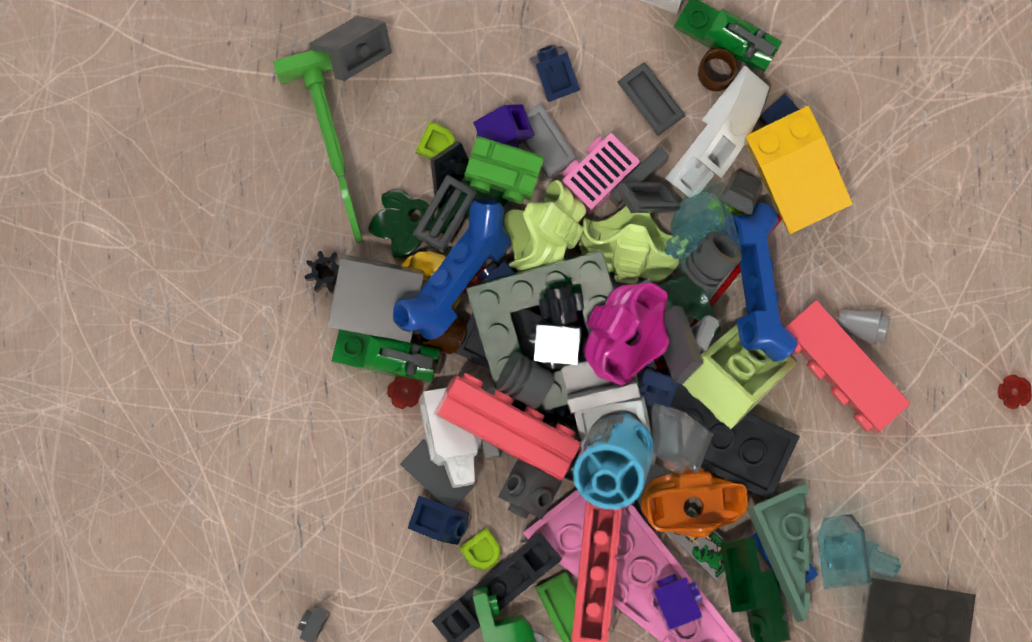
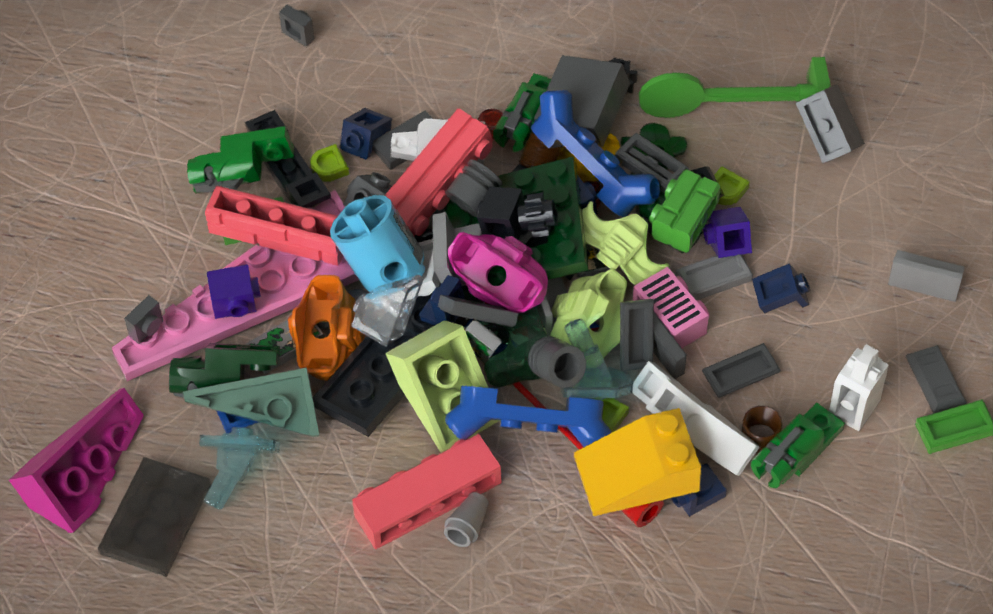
camera: 105 degrees right, 25 degrees down
(742, 192) = (619, 408): dark grey tile -> none

